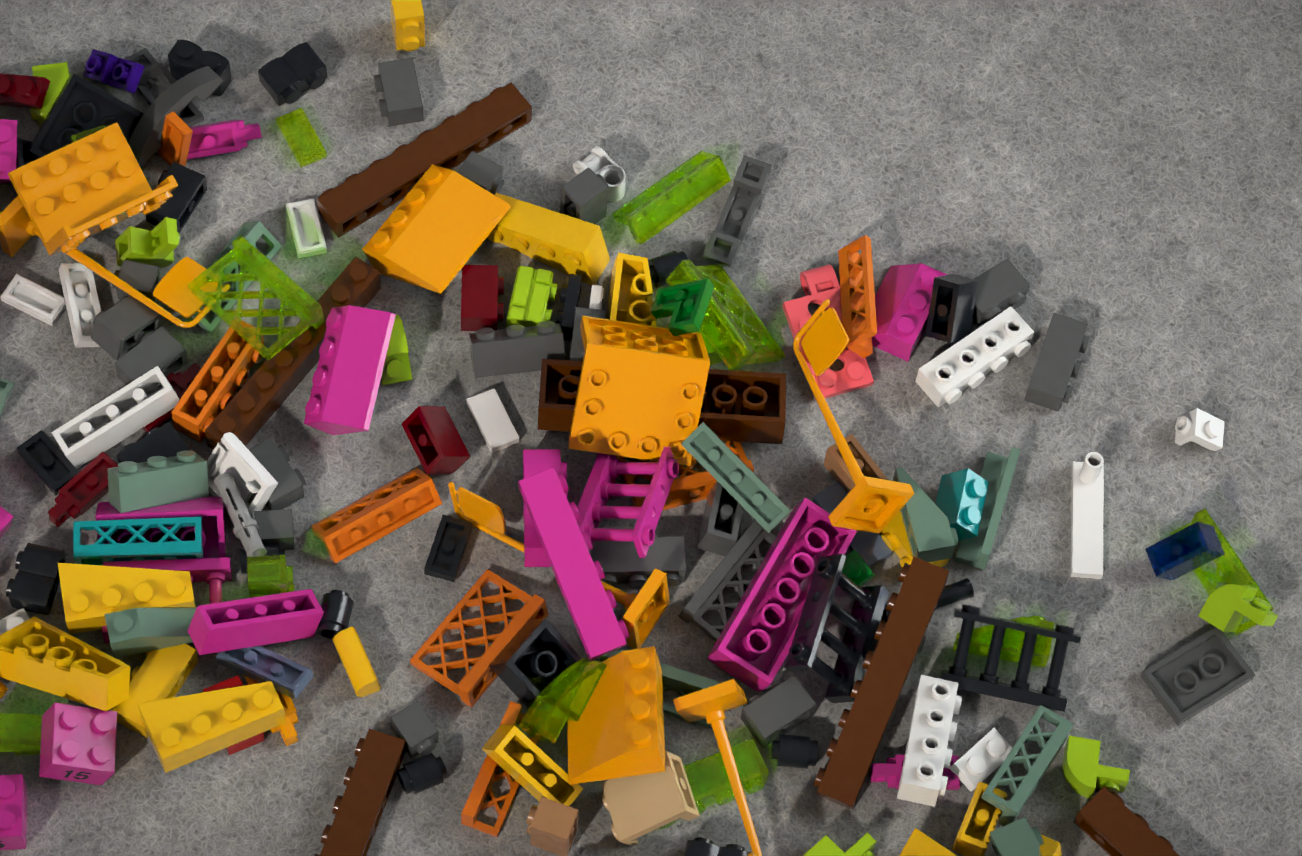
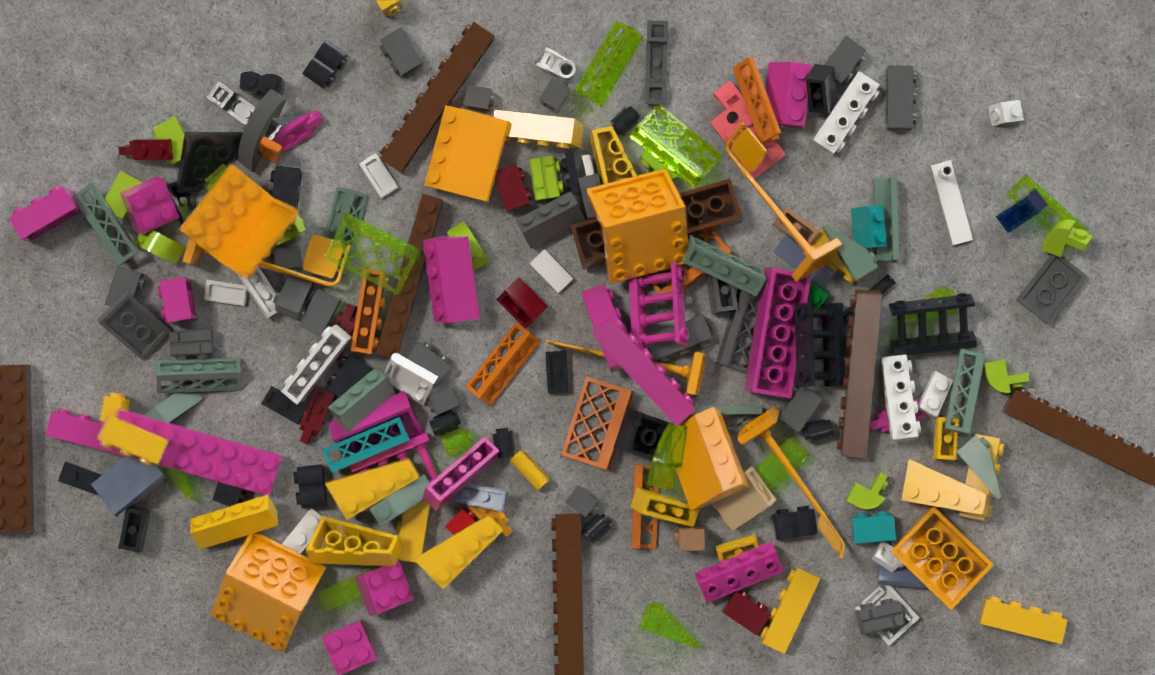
camera: 15 degrees left, 25 degrees up
(113, 71) = (206, 107): dark purple slope -> none
(226, 488) = (421, 404): light grey pin -> none
(301, 137) = (348, 109): clear neon green tile -> none
(685, 304) = (652, 156): green plate -> none

